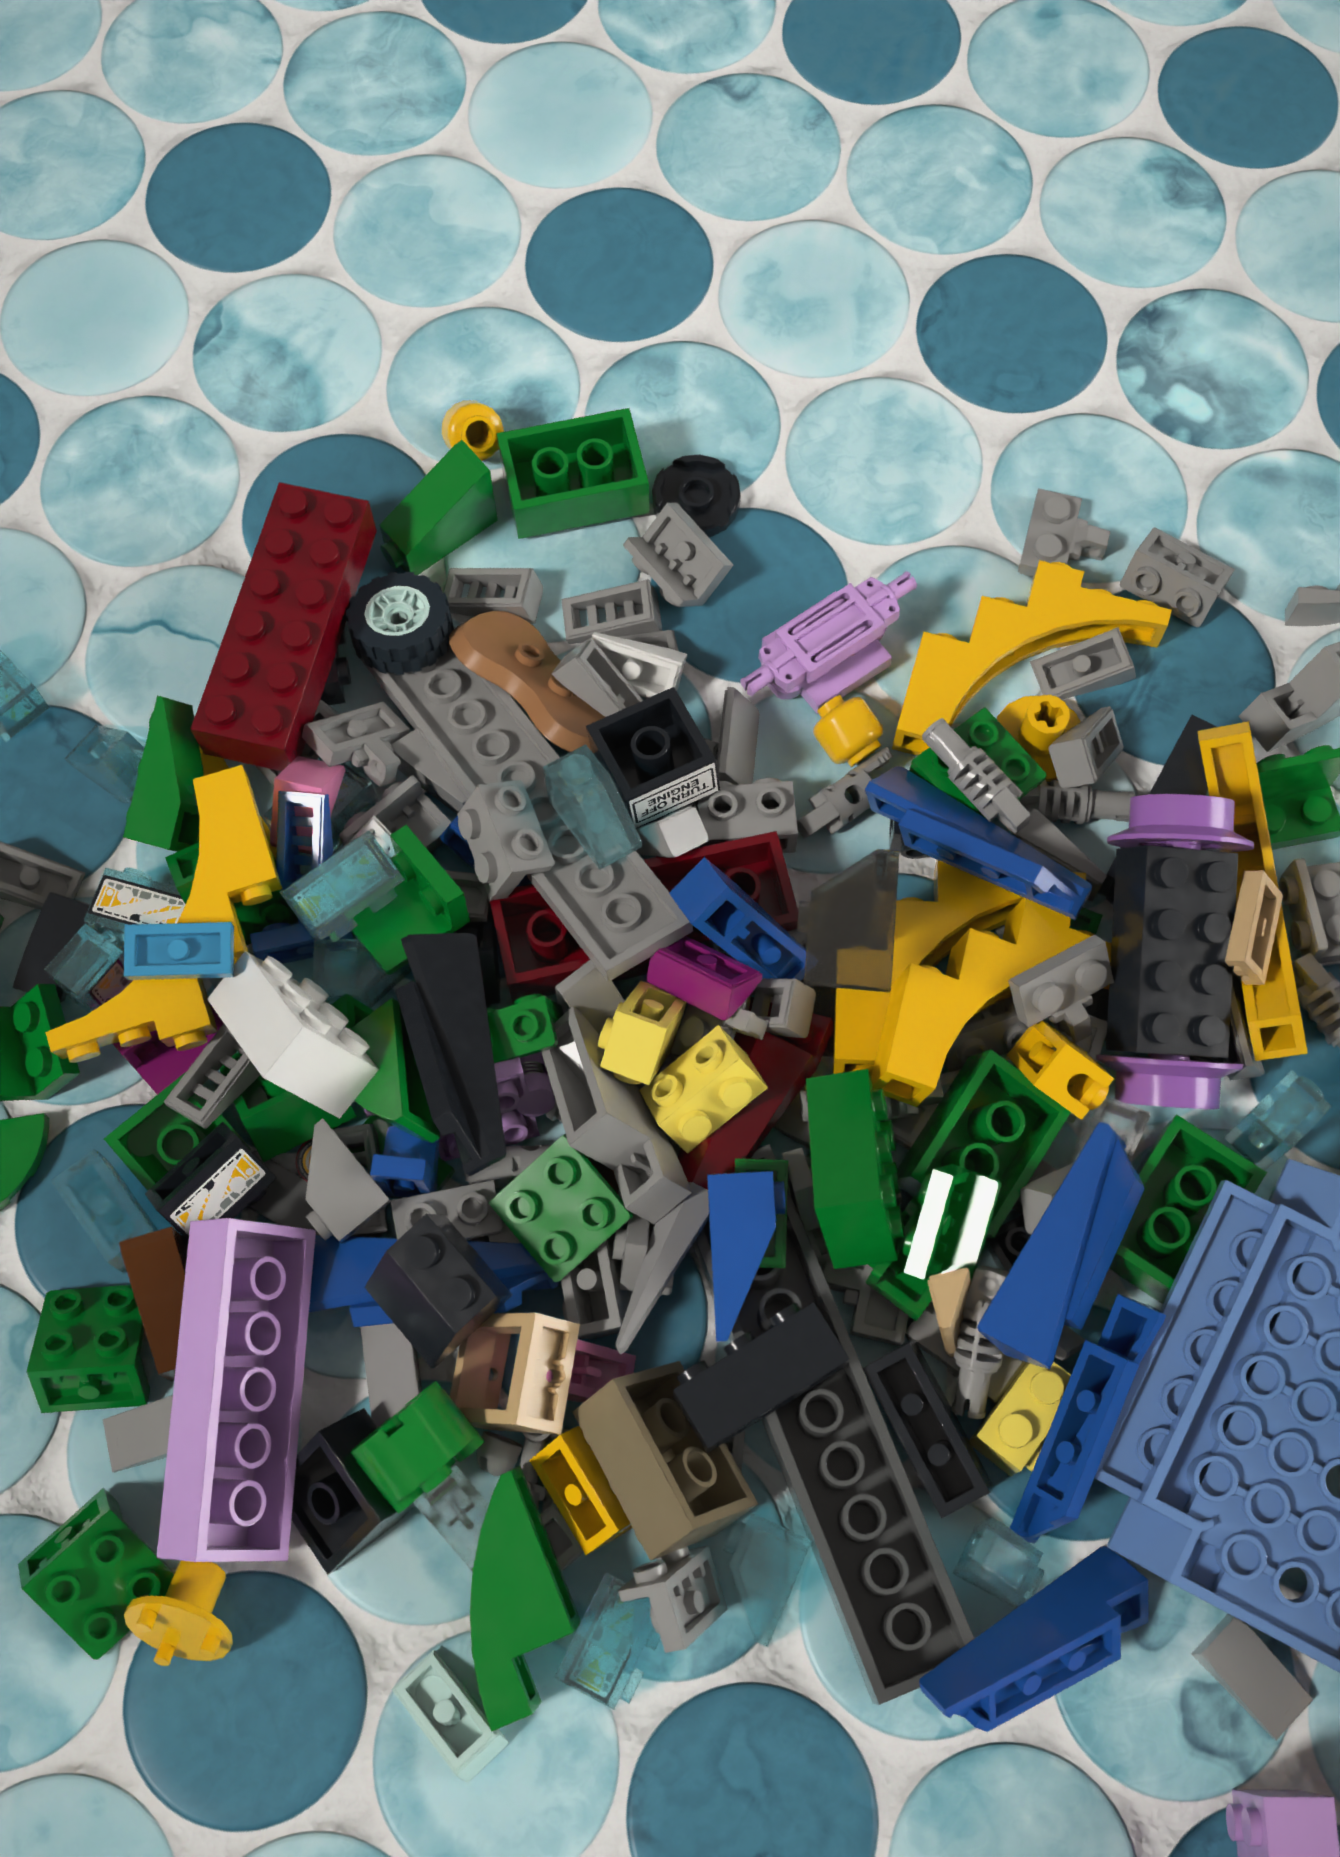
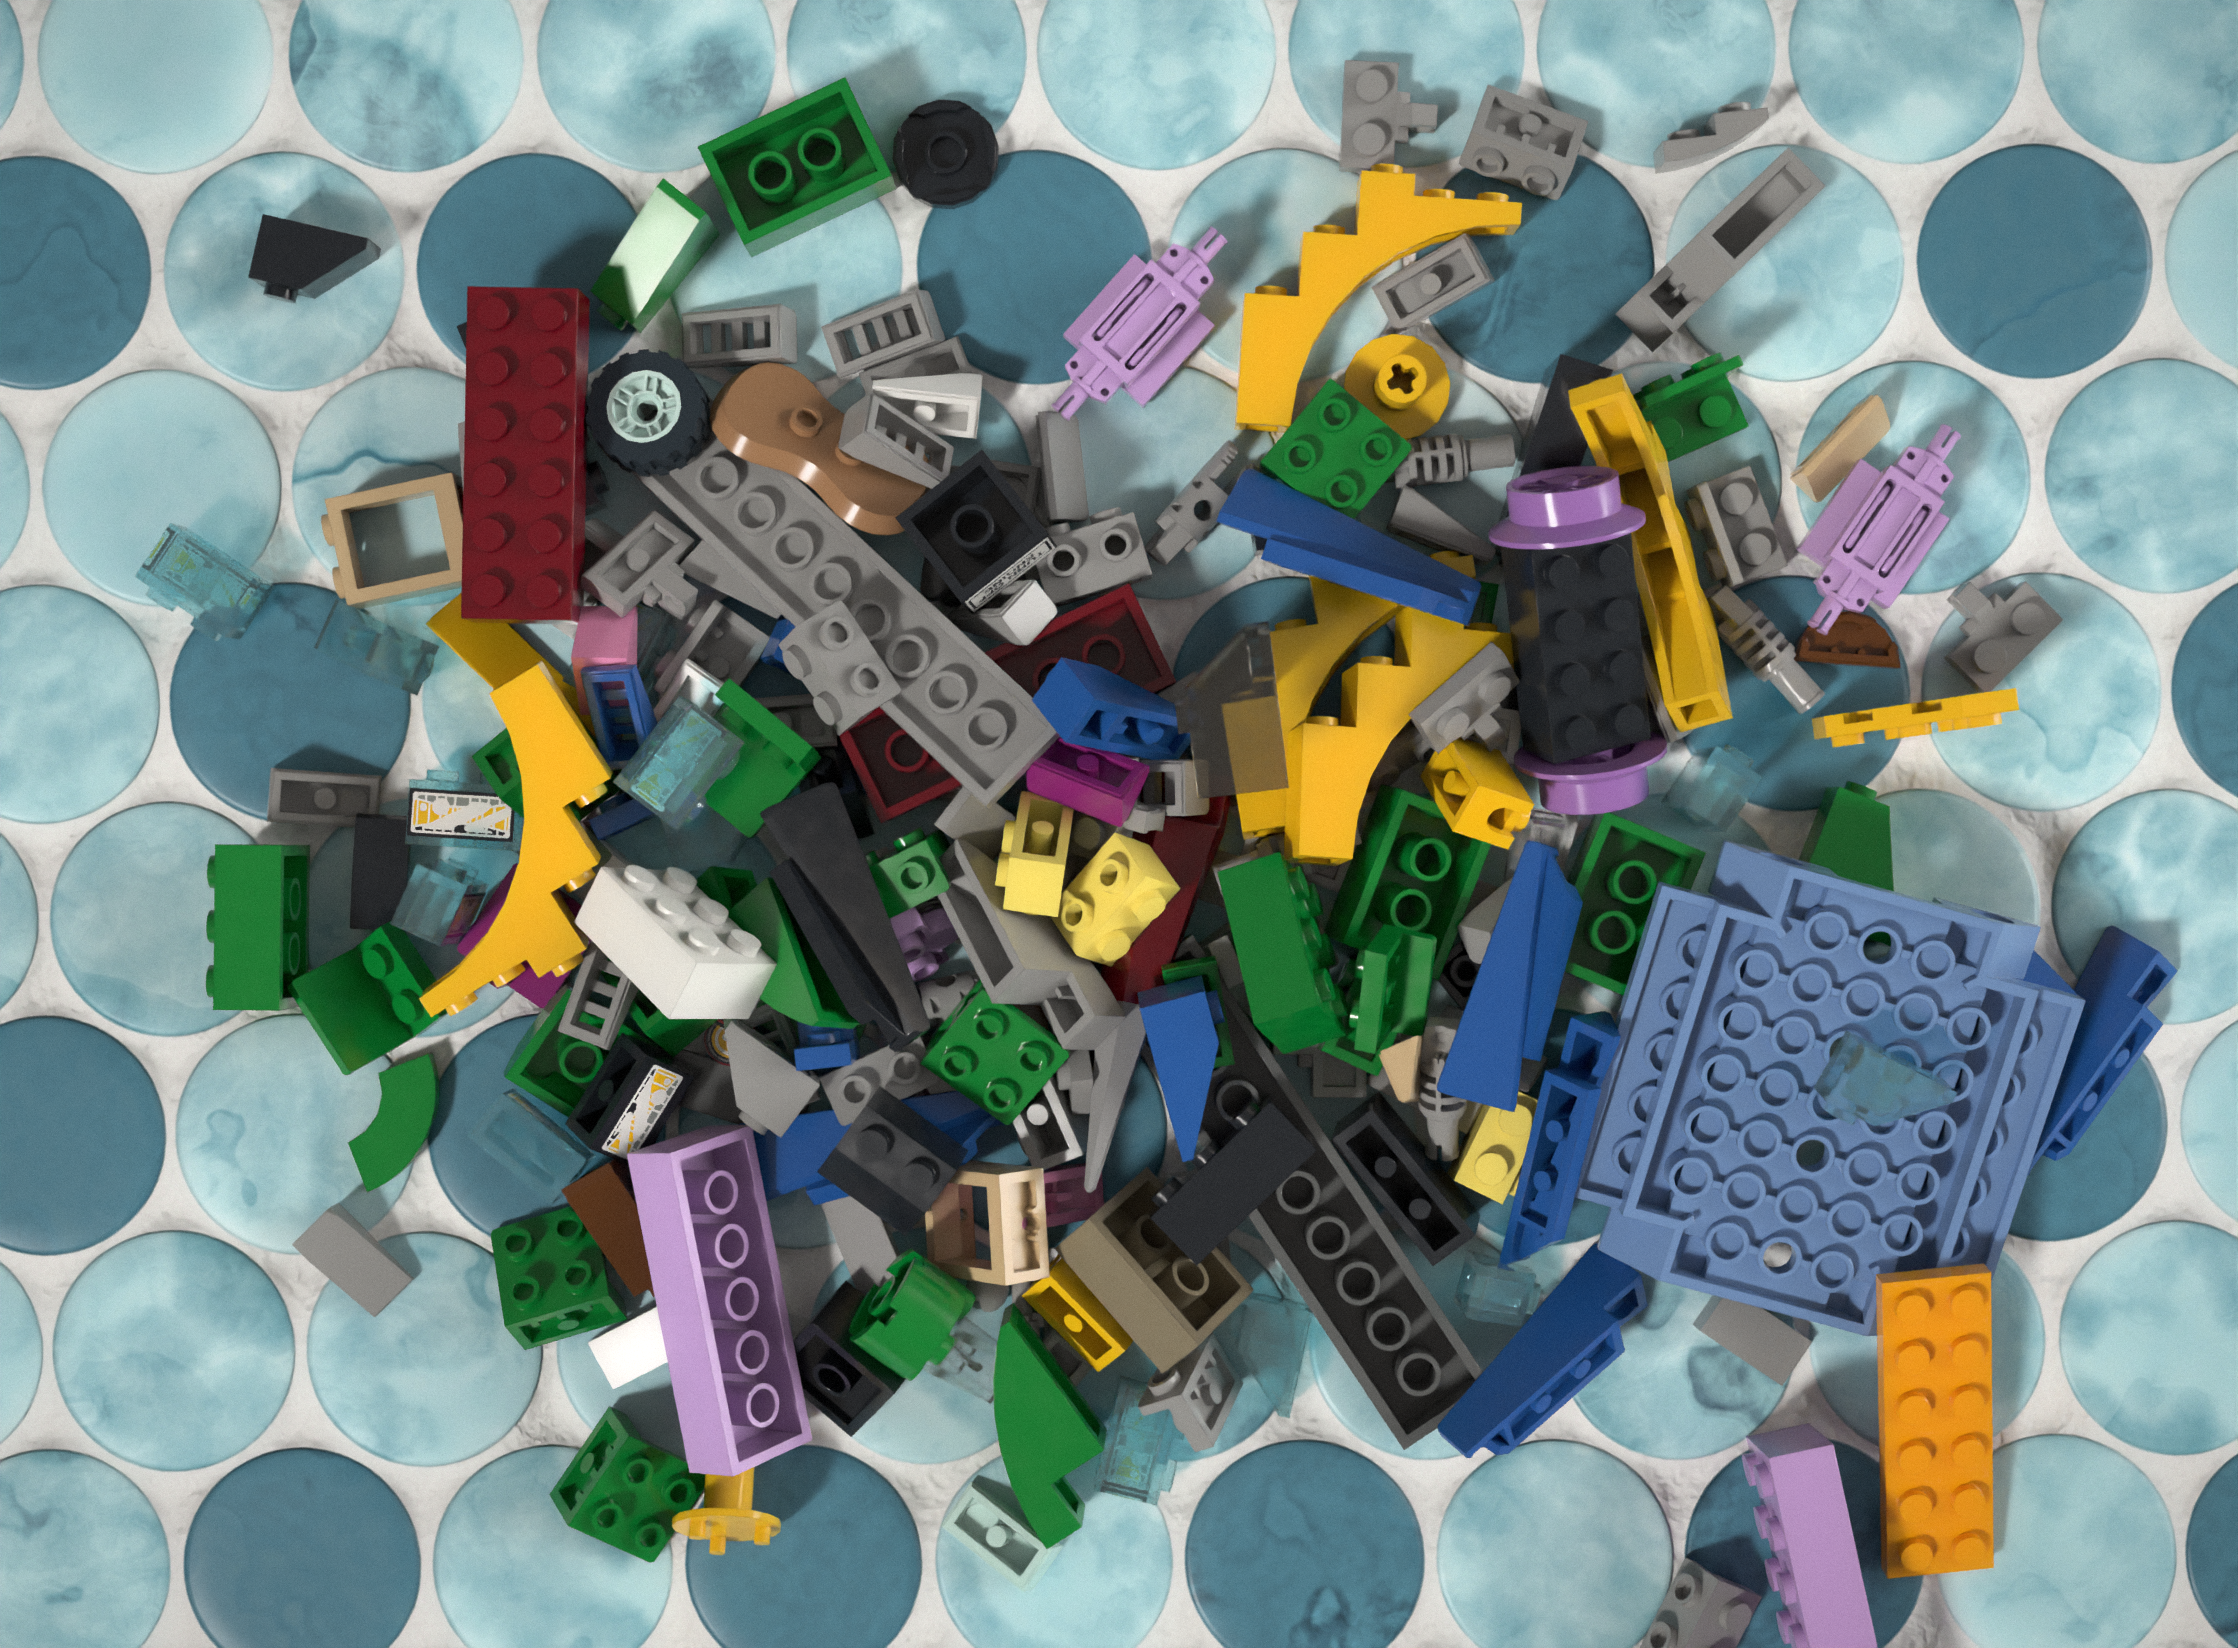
camera: 15 degrees left, 20 degrees up
(148, 649) = (339, 533): none -> tan window
(161, 466) = (306, 258): none -> black slope
(164, 795) = (449, 670): green slope -> none
(179, 951) = (534, 888): dark azure plate -> none
(474, 425) = (663, 133): yellow head -> none
(591, 806) = (926, 618): clear light blue slope -> none
(679, 558) = (944, 250): light grey bracket -> none
(848, 730) = (1182, 428): yellow head -> none
(978, 777) = (1336, 477): light grey hinge -> none
(1086, 749) = (1450, 403): light grey slope -> none
(1254, 927) = (1658, 598): tan tile -> none

